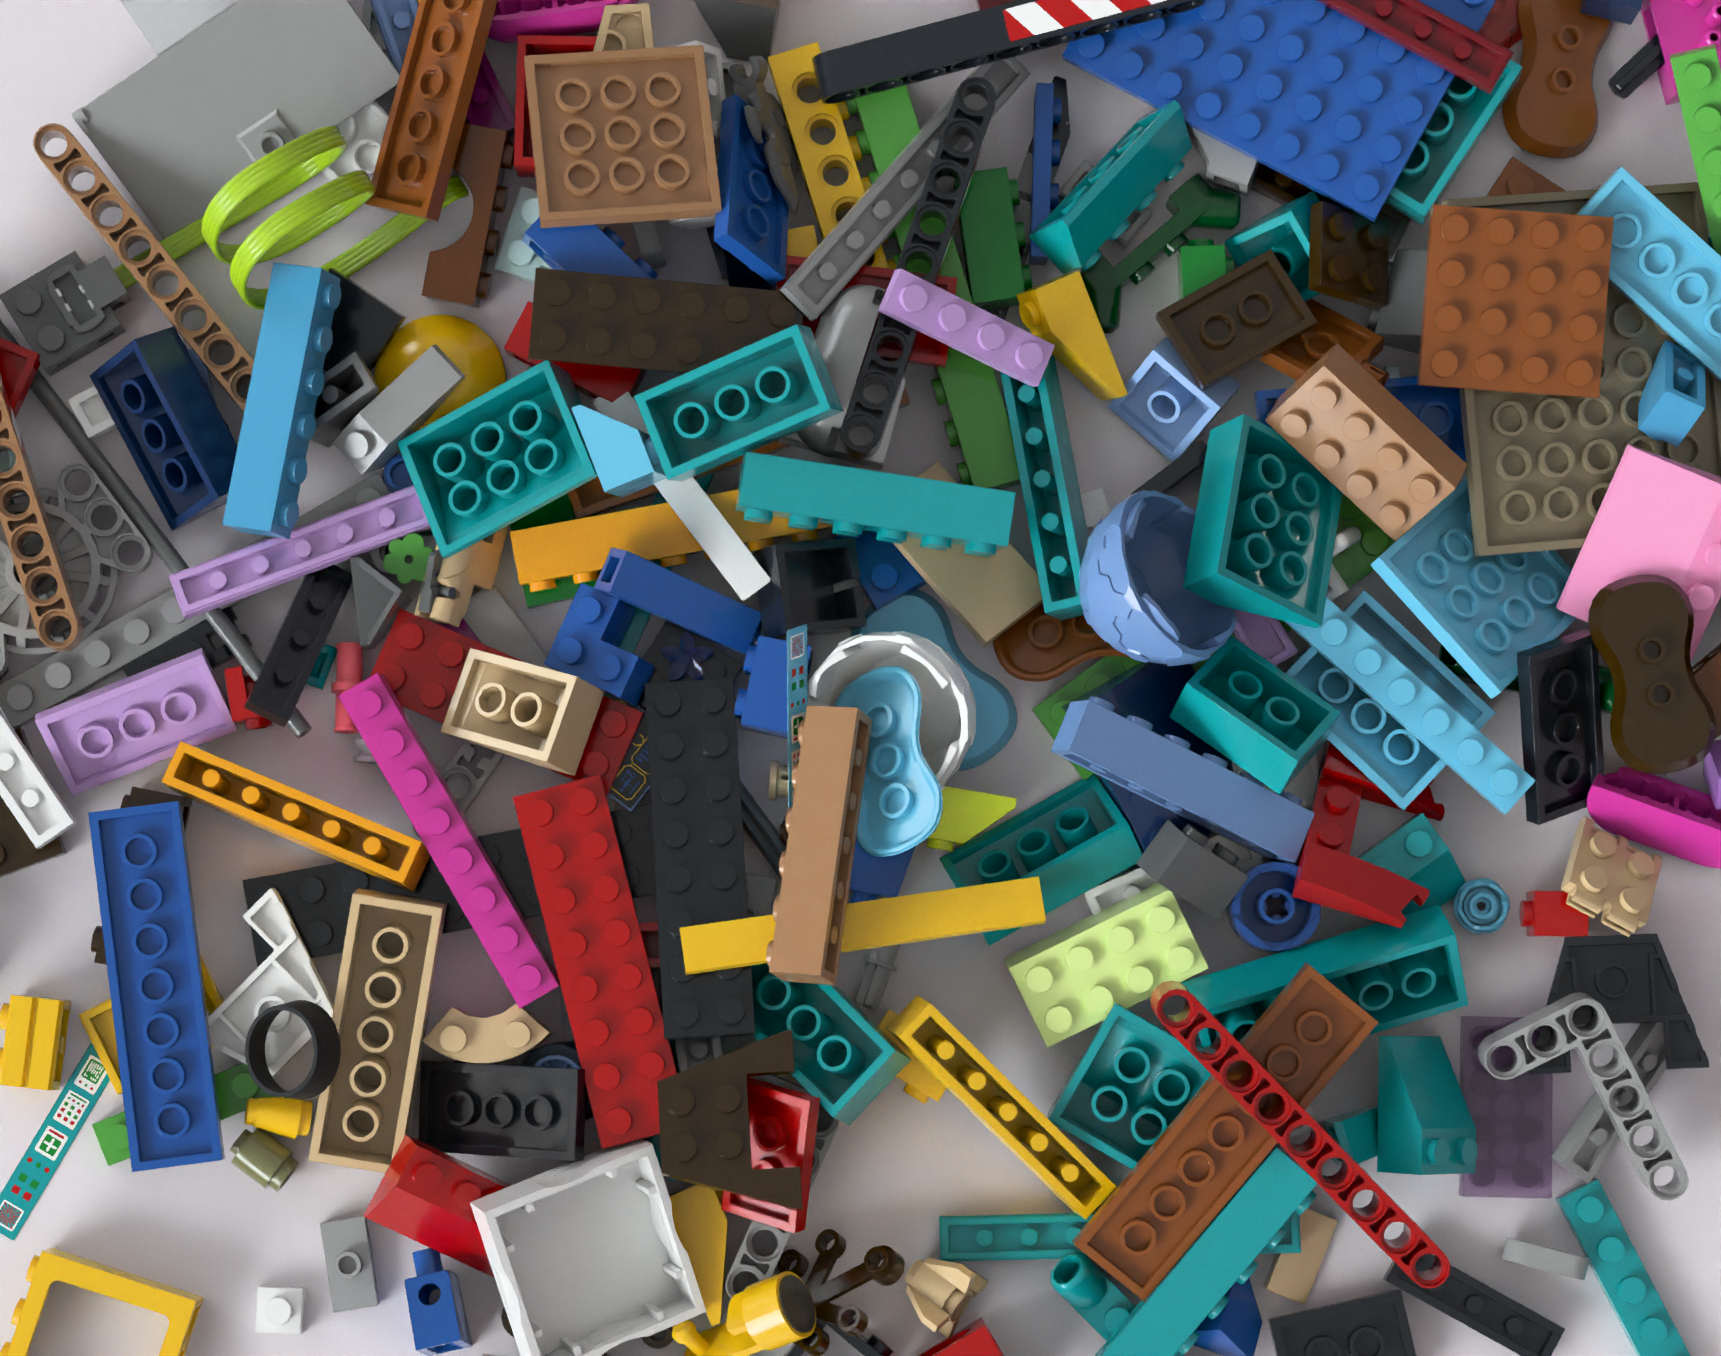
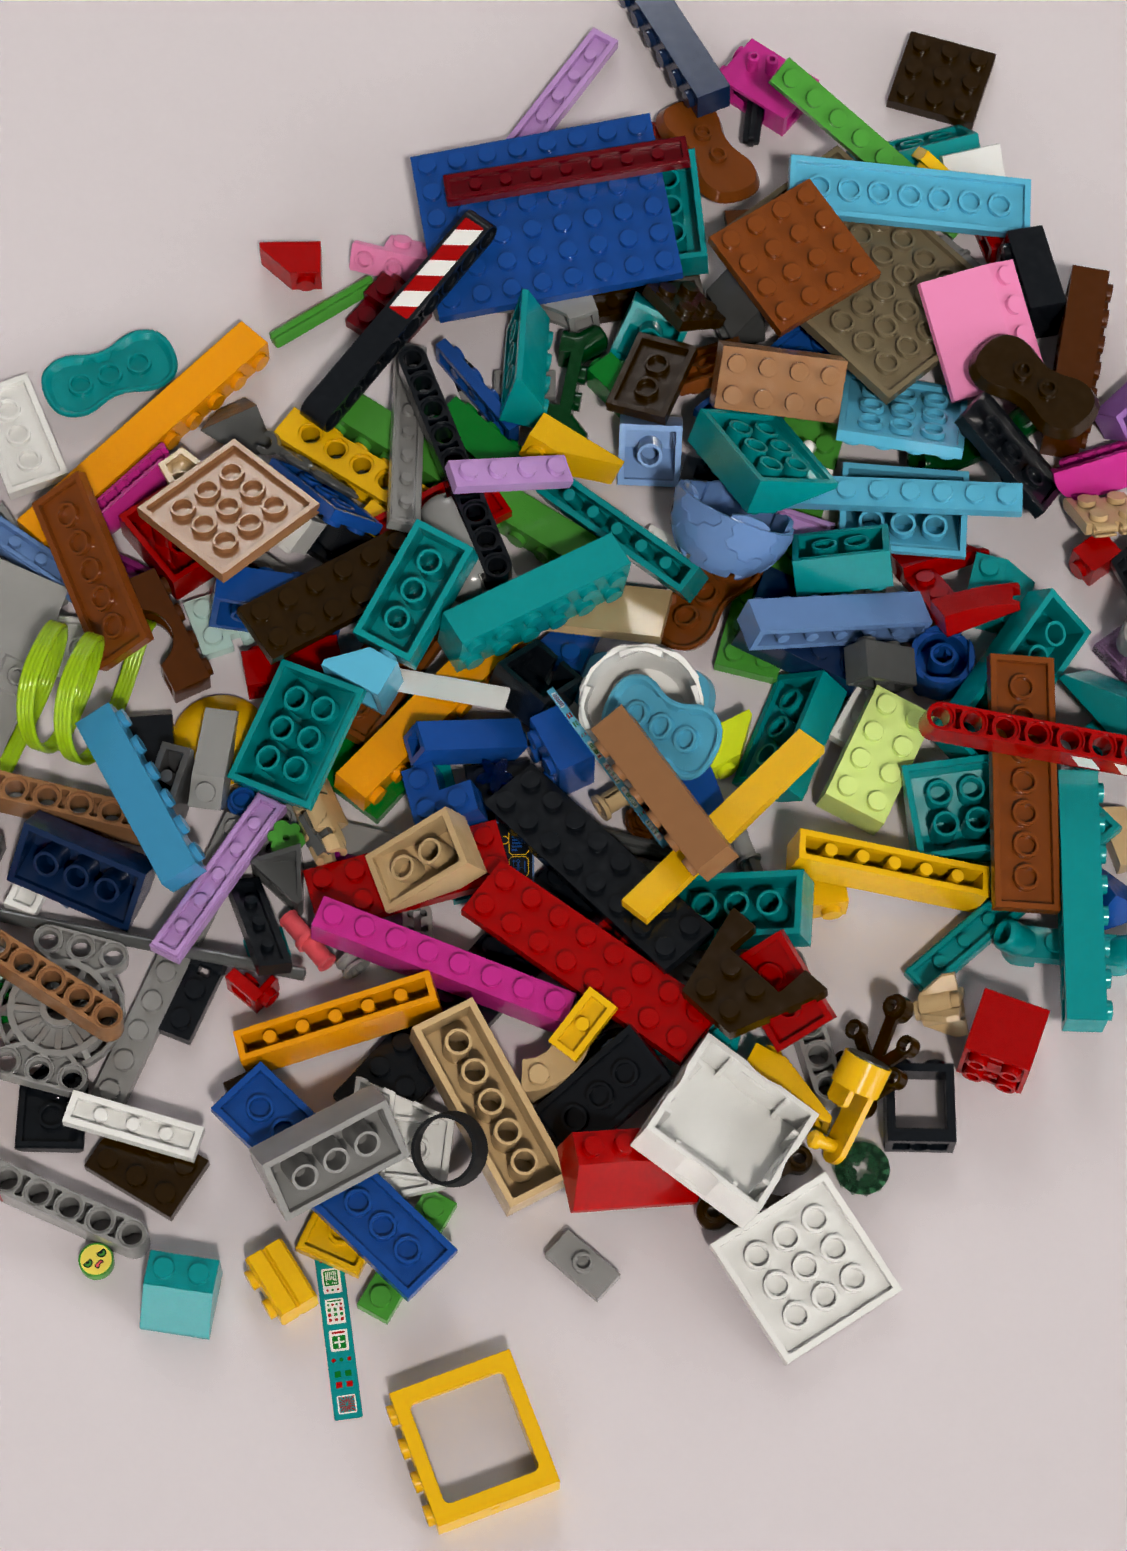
camera: 40 degrees left, 20 degrees down
(136, 721) = (193, 1049): lavender plate -> none
(163, 960) = (329, 1152): none -> light grey slope
(263, 1158) = (480, 1241): olive brick -> none
(280, 1115) = (470, 1207): yellow cone -> none
(280, 1310) = (563, 1325): white plate -> none
(443, 1324) = (659, 1242): blue torso -> none
(532, 1029) = (583, 1024): none -> yellow plate
(1495, 901) = (1054, 576): medium azure plate -> none
(1672, 395) = (918, 251): dark azure slope -> none

